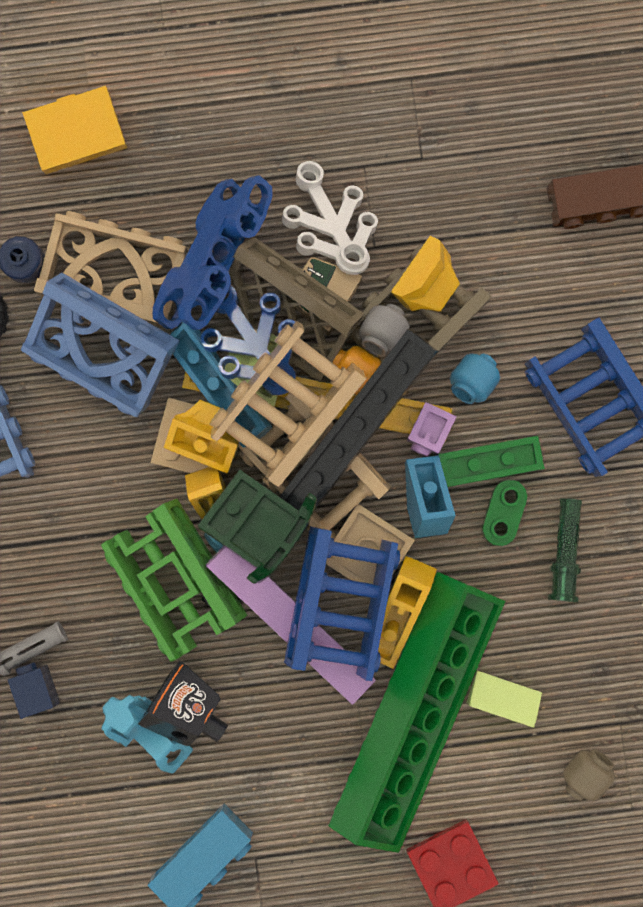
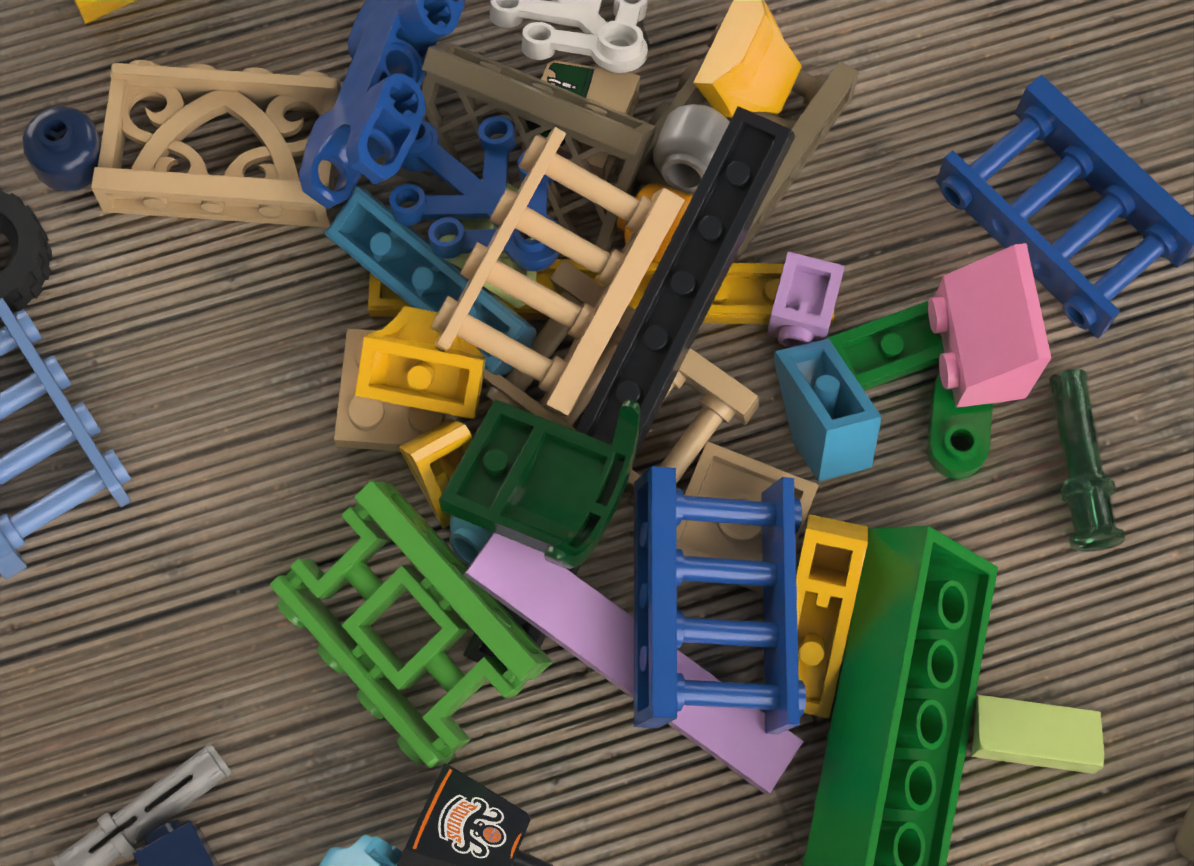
camera: 15 degrees left, 15 degrees down
(71, 359) = (291, 231): medium blue fence -> none
(474, 378) = (860, 208): dark azure head -> none
(528, 474) = (990, 329): none -> bright pink slope

